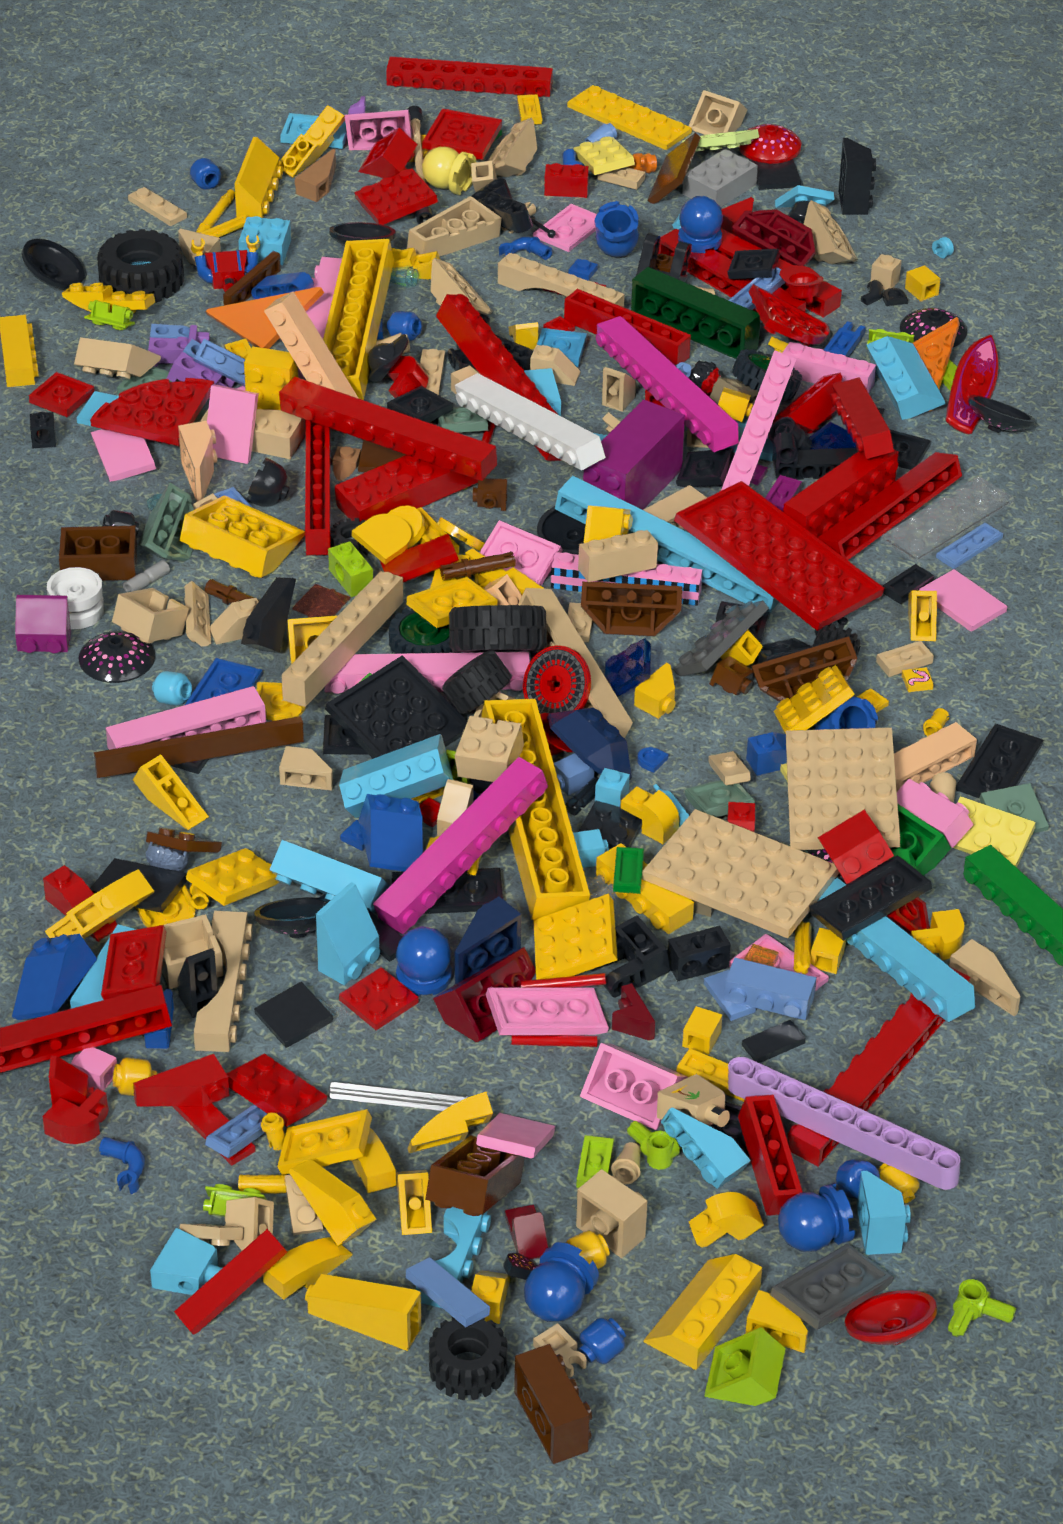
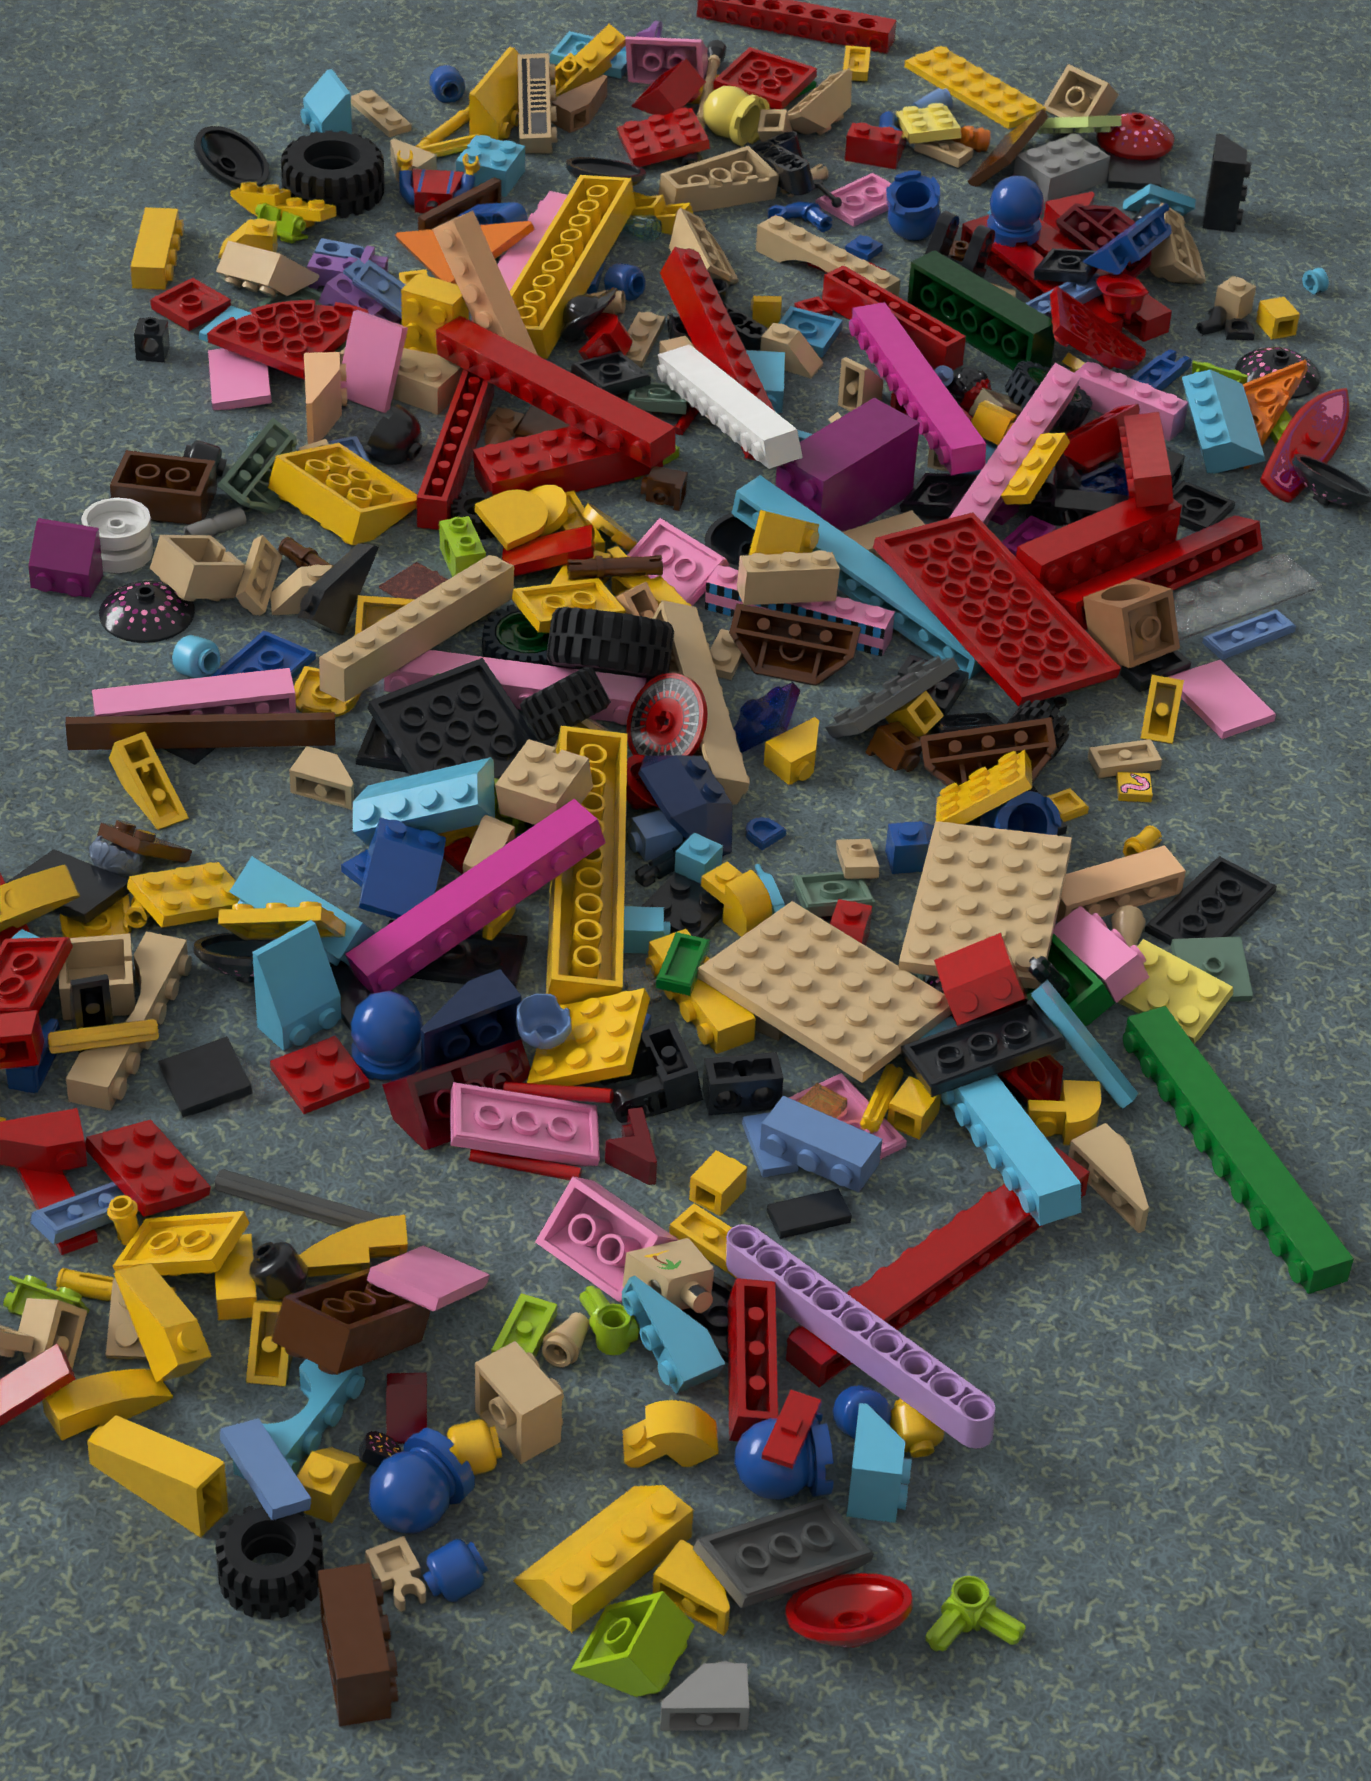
camera: 10 degrees right, 0 degrees up
(93, 327) = (255, 233): none -> yellow slope
(117, 208) = (328, 105): none -> medium azure slope
(212, 996) = (103, 1036): none -> yellow axle
(286, 181) = (535, 103): none -> tan brick
(320, 886) = (278, 920): none -> yellow plate
(407, 1148) = (278, 1270): none -> black head
(540, 931) = (542, 1021): none -> medium blue hair
(779, 438) = (1035, 468): none -> yellow plate
(799, 238) = (1132, 243): none -> blue wedge
(812, 1397) = (709, 1699): none -> light grey slope
(819, 1197) = (791, 1429): none -> red piece
(885, 549) = (1133, 621): none -> medium nougat brick
(904, 836) = (1043, 970): none -> black axle
(942, 883) = (1084, 1044): none -> medium azure tile

